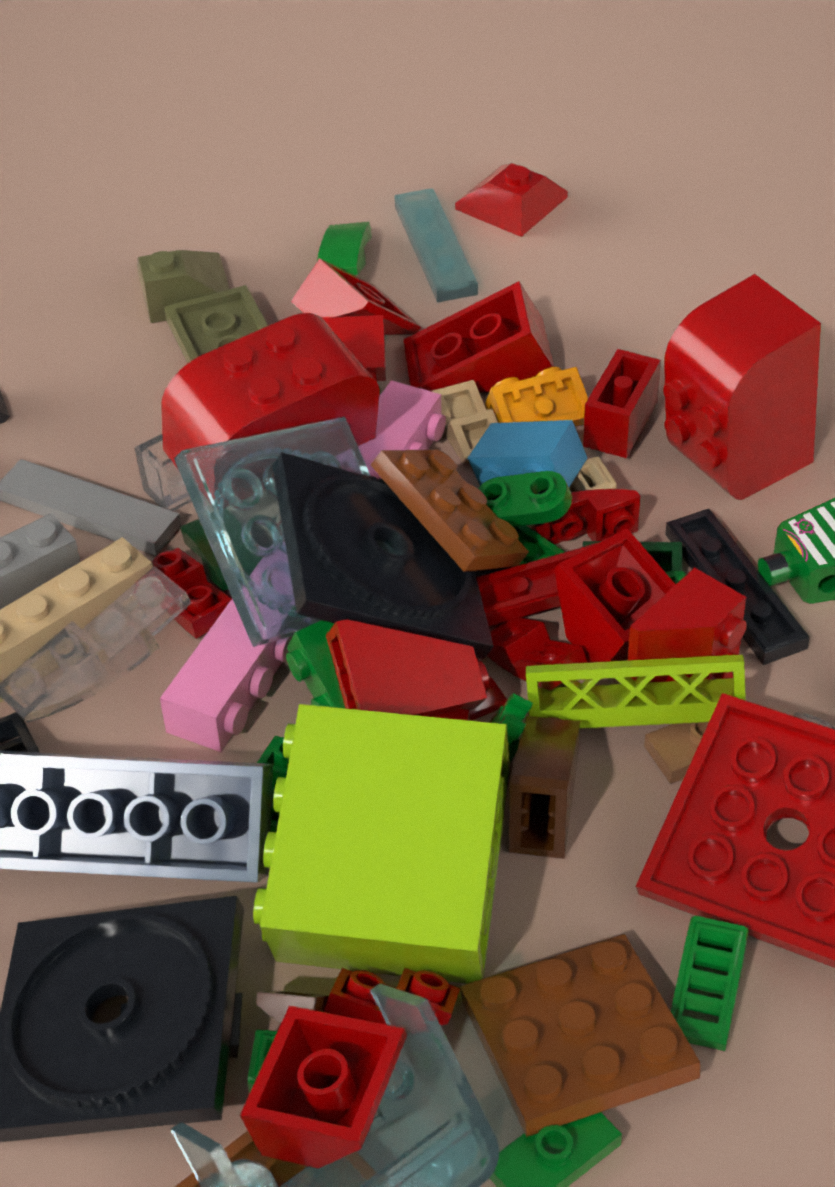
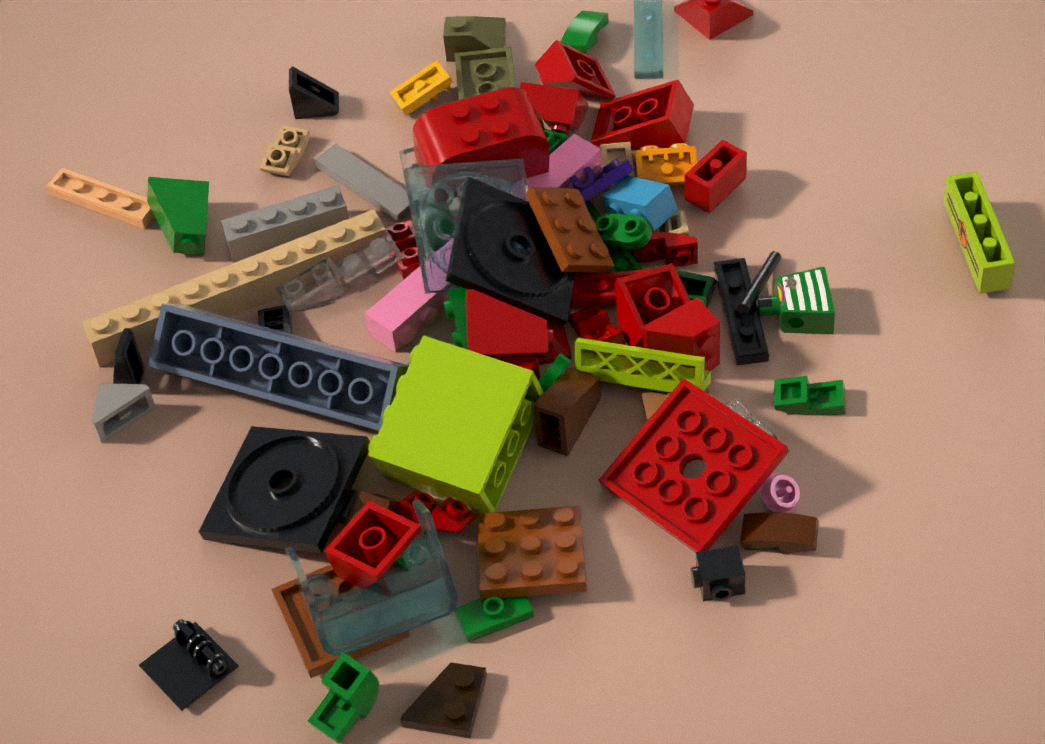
camera: 20 degrees right, 5 degrees up
(131, 360) = (421, 88): none -> yellow plate
(472, 424) = (612, 173): none -> dark purple plate
(717, 947) = (625, 523): green slope -> none
(744, 387) = (781, 185): red brick -> none
(749, 539) = (759, 283): none -> black bar

